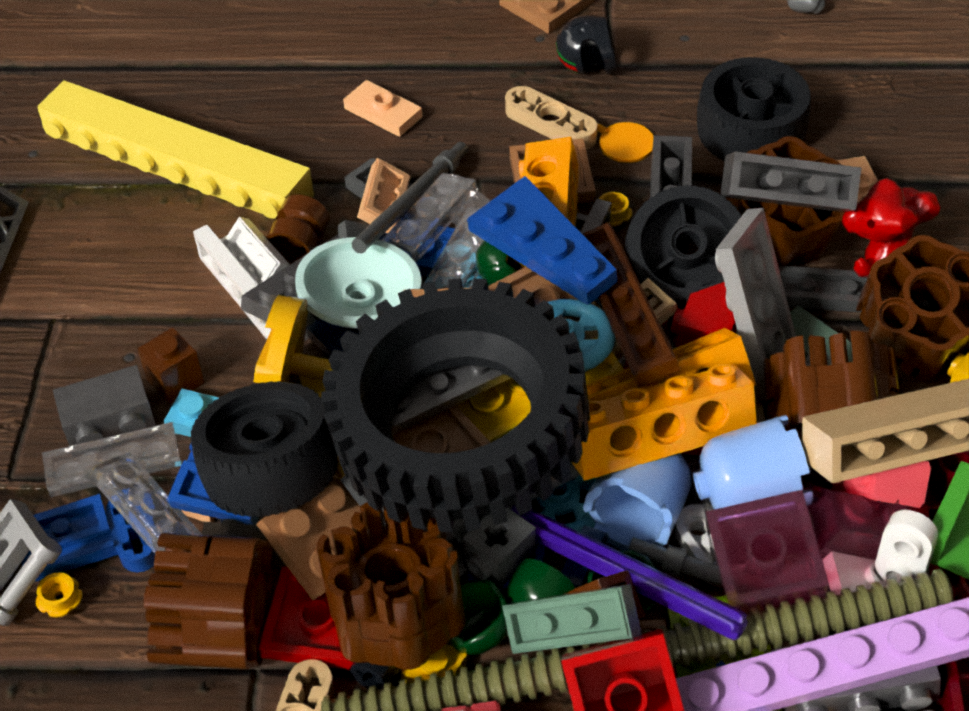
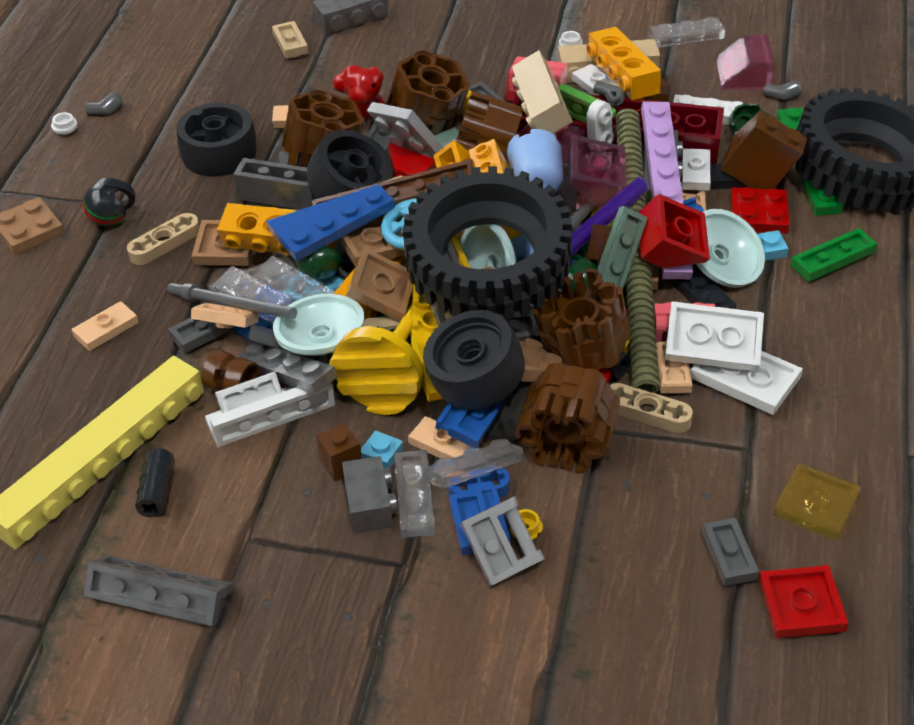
camera: 80 degrees left, 5 degrees down
(123, 210) = (155, 483): none -> black axle
(625, 142) = (204, 207): light orange piece -> none
(790, 182) = (339, 100): flat silver brick -> none

